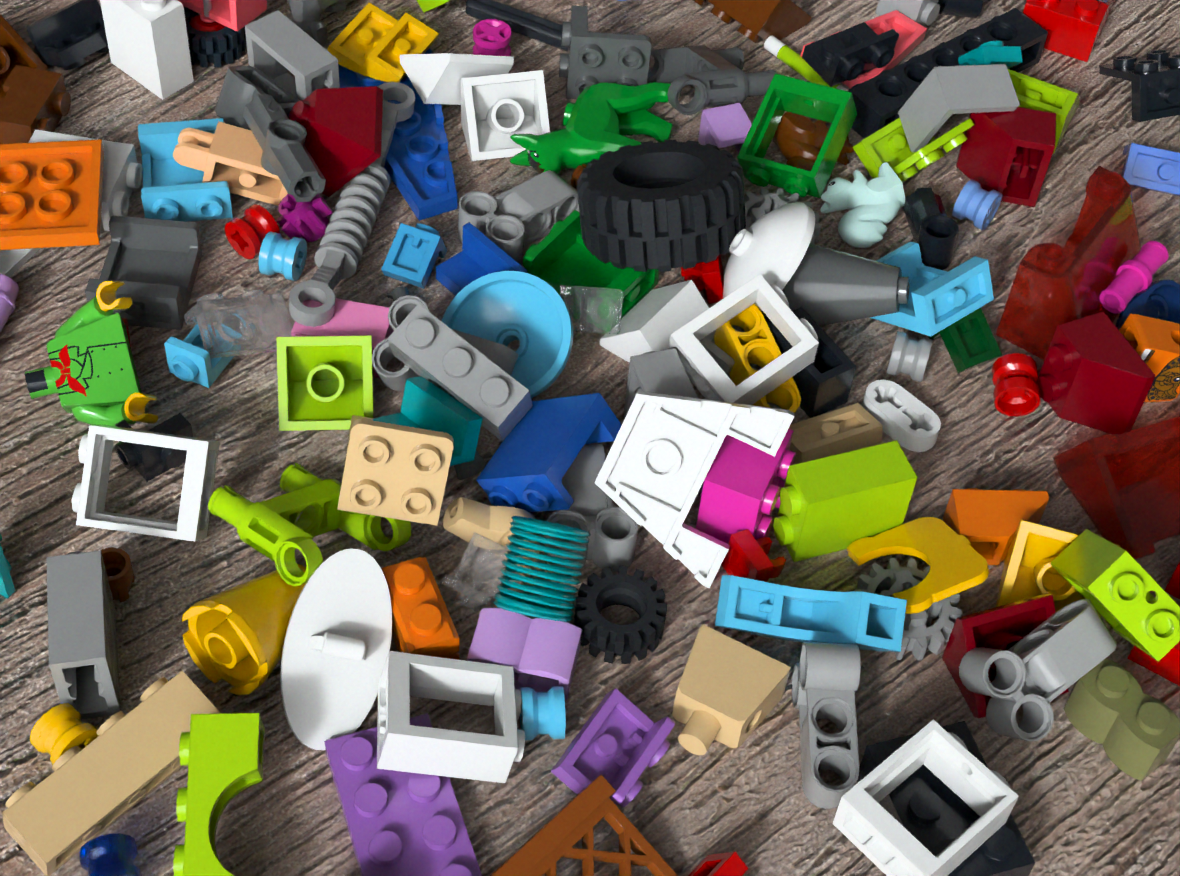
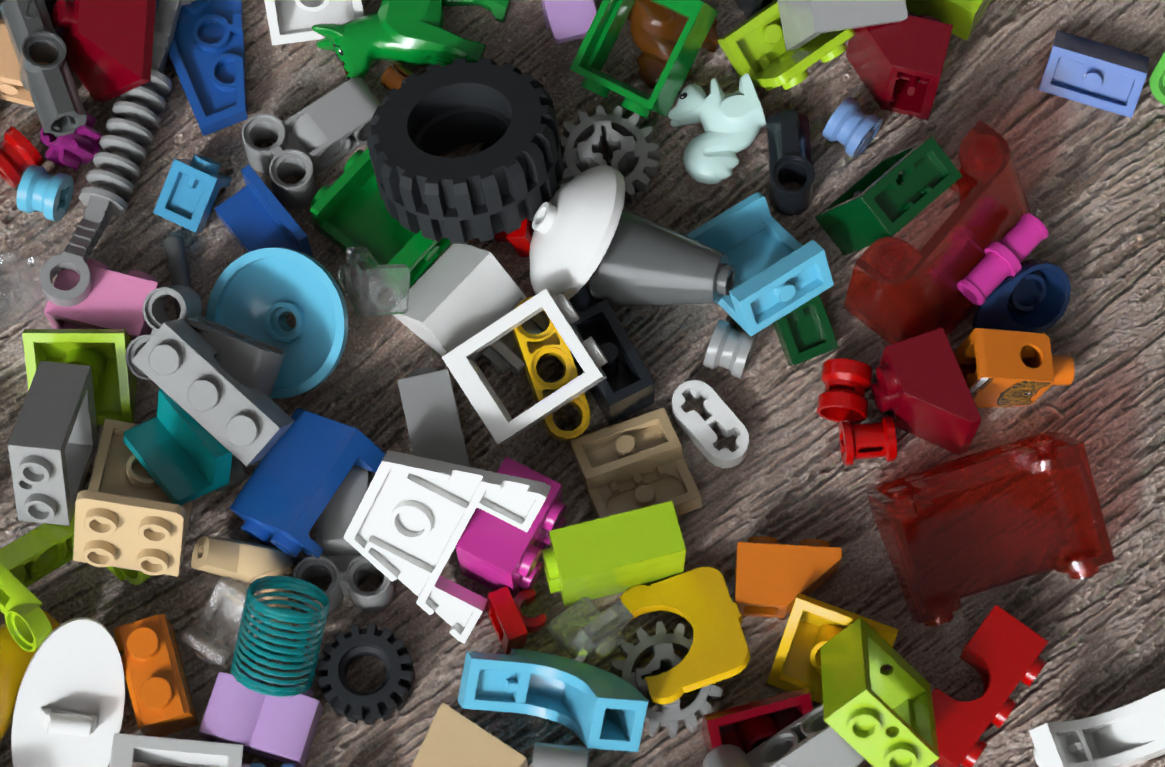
camera: 10 degrees right, 20 degrees up
(313, 416) = (53, 443): none -> light grey window
(833, 570) = (586, 631): none -> clear bracket
(1033, 223) = (888, 196): none -> dark green window
(1044, 421) = (867, 440): none -> red bush

